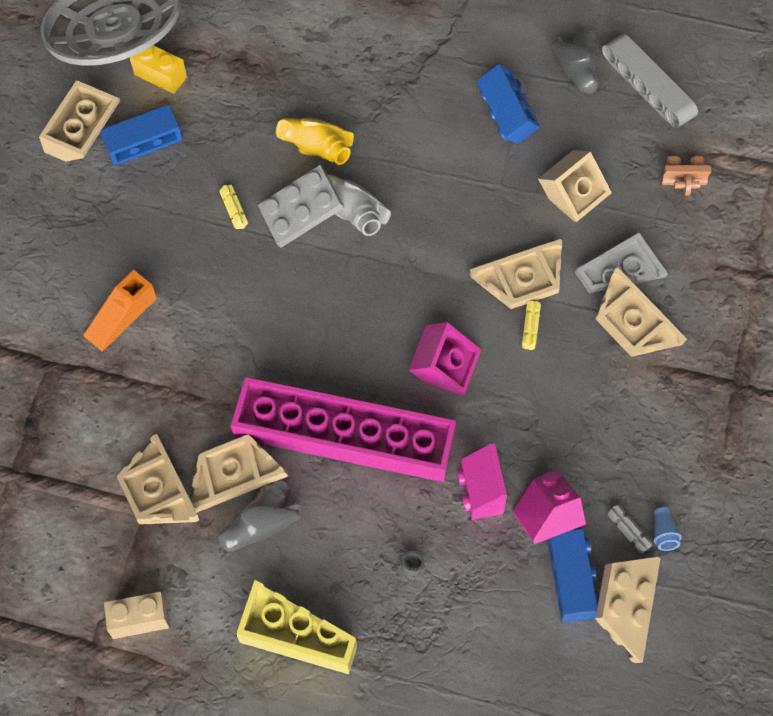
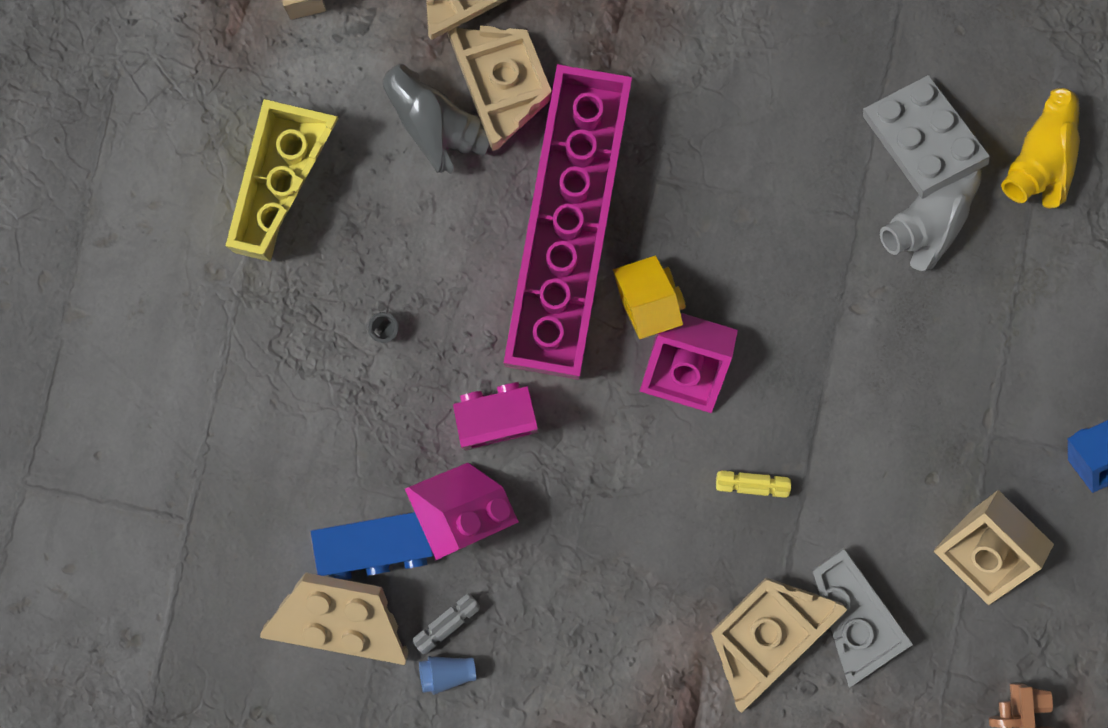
camera: 85 degrees right, 20 degrees up
(233, 206) = (924, 40): light yellow axle -> none
(401, 377) = (649, 296): none -> yellow brick
(522, 275) = (833, 471): tan wing -> none

